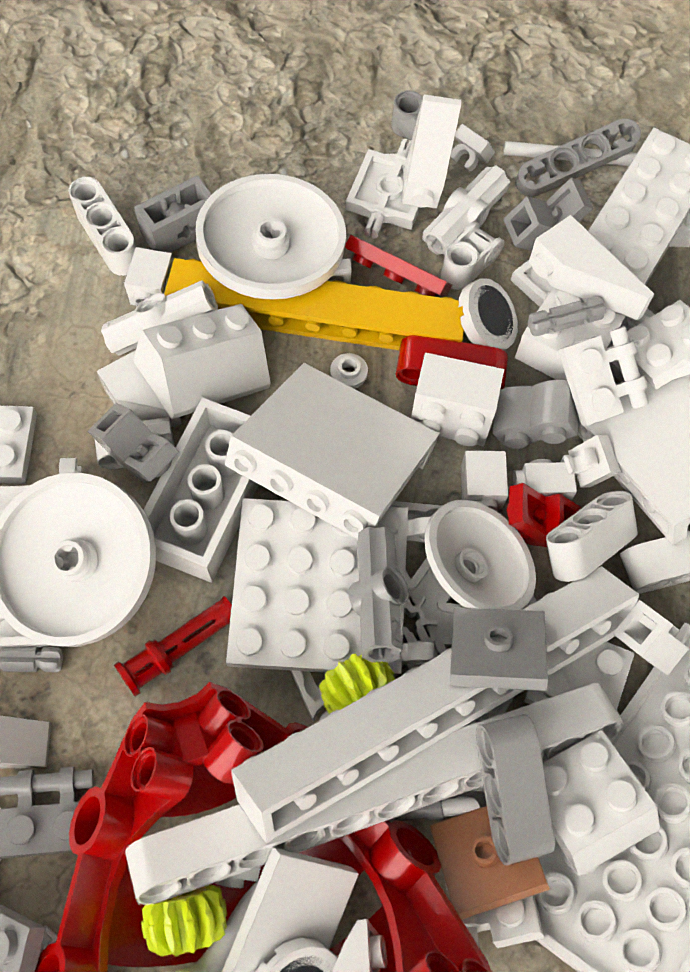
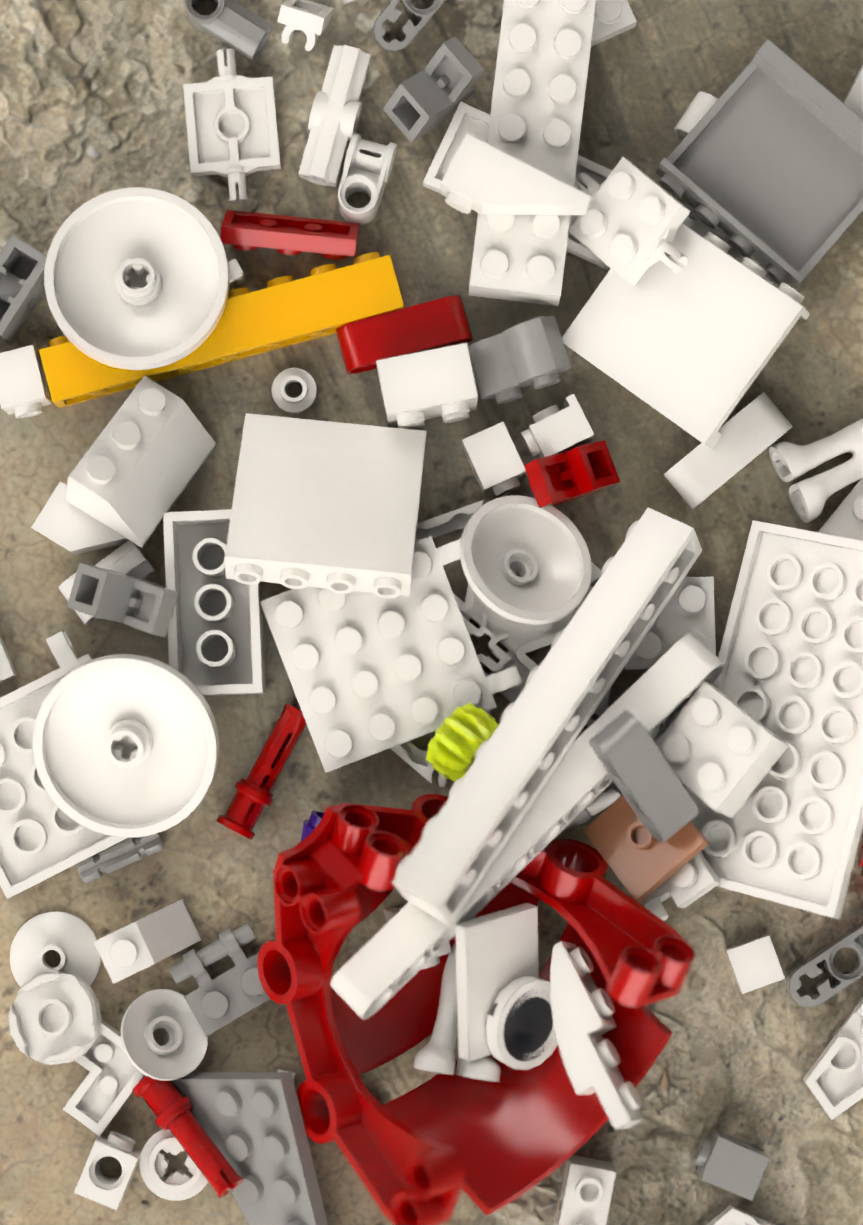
camera: 20 degrees left, 20 degrees up
(124, 332) = (63, 432): white piece -> none
(185, 921) = (408, 1014): neon yellow gear -> none
(379, 595) = (444, 649): light grey piece -> none
(430, 151) = (270, 96): white slope -> none
(488, 314) = (419, 257): tile -> none
(499, 649) = (579, 655): light grey plate -> none
(566, 316) = (508, 251): light grey axle -> none
(592, 380) = (563, 311): white plate -> none
(592, 535) = (627, 475): white beam -> none
(593, 461) = (597, 393): white tile -> none
(651, 637) = (723, 562): white brick -> none

